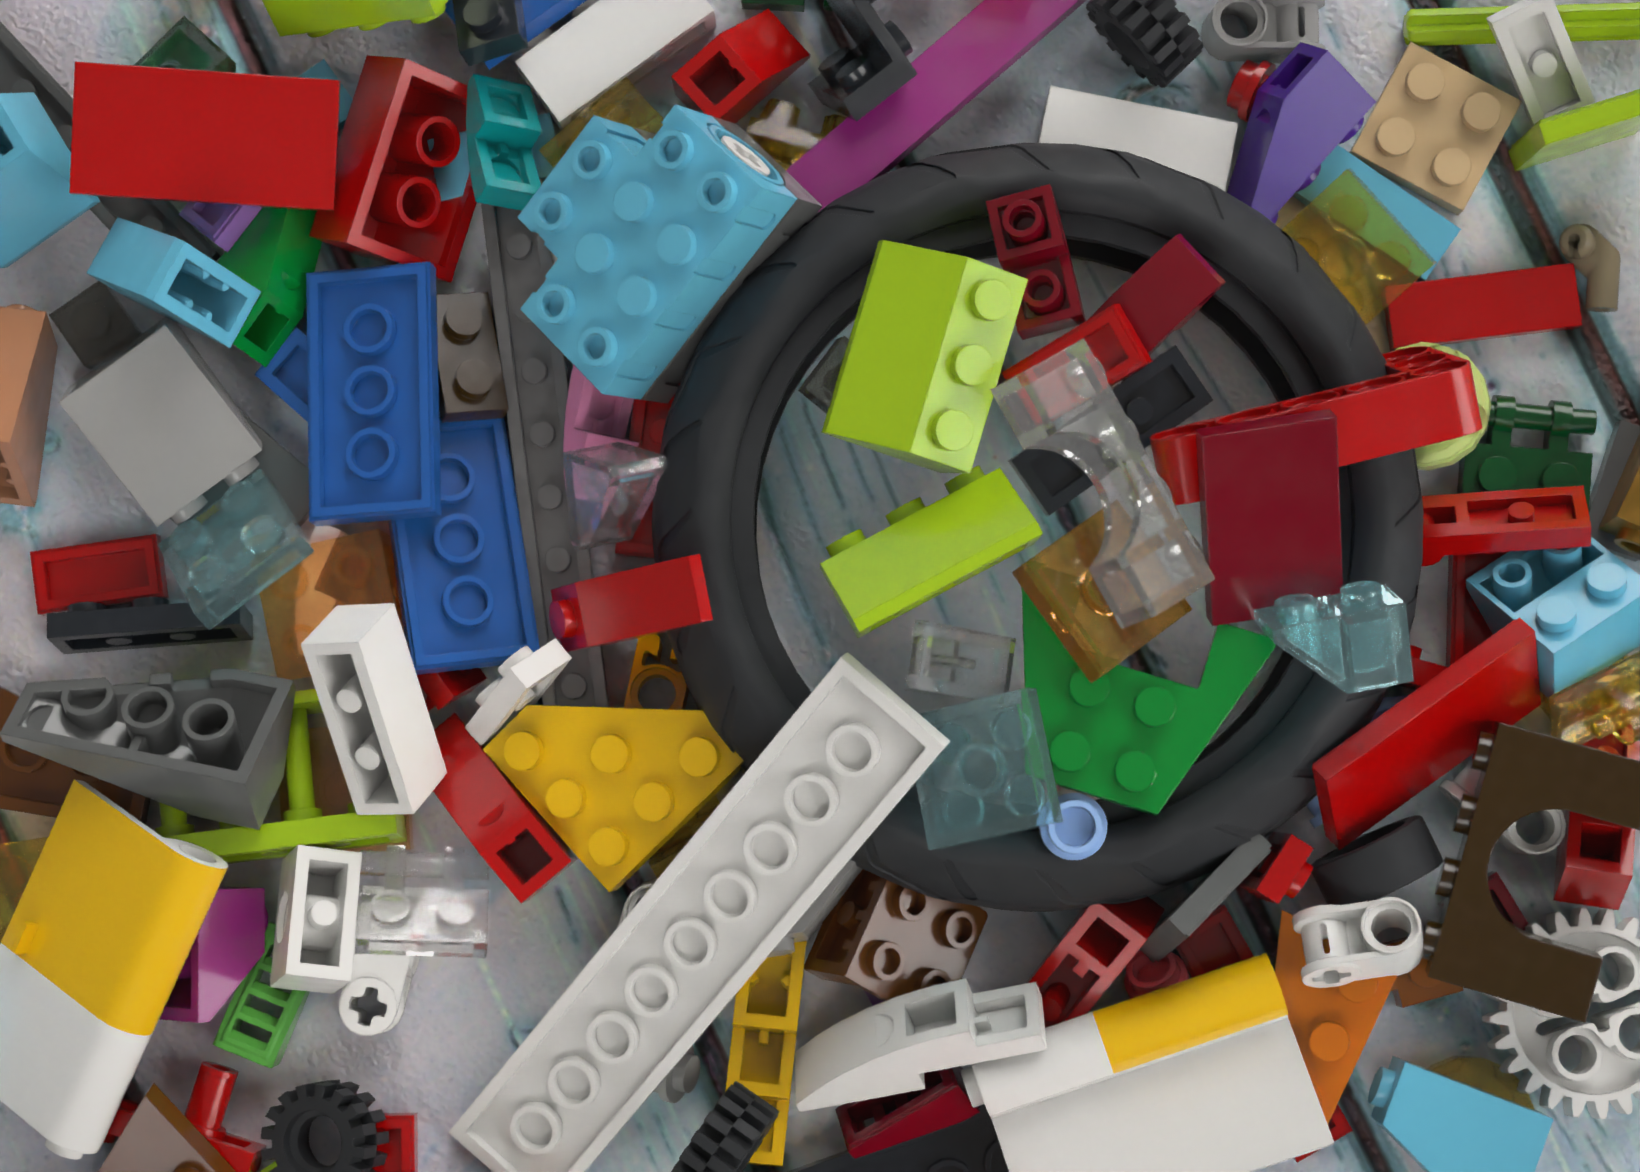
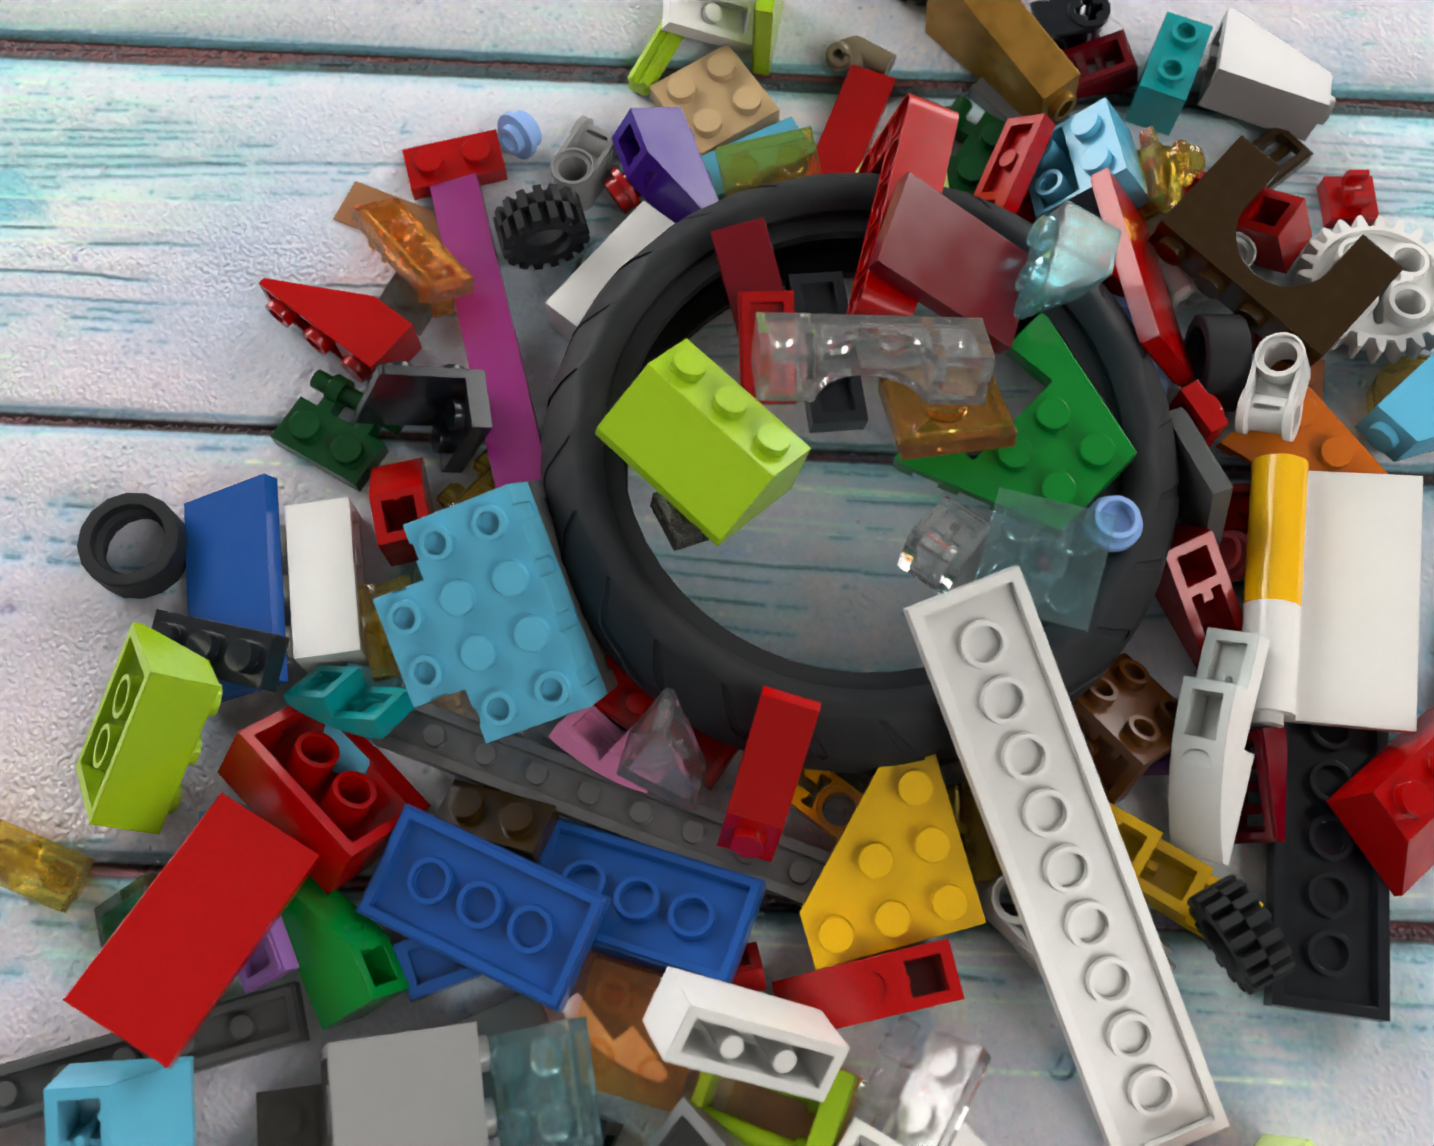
camera: 65 degrees left, 15 degrees down
(174, 280) = (292, 1018): medium azure slope -> none
(522, 683) = (779, 898): white plate -> none
(928, 549) = (854, 512): lime slope -> none
(1035, 247) = (651, 330): dark red slope -> none

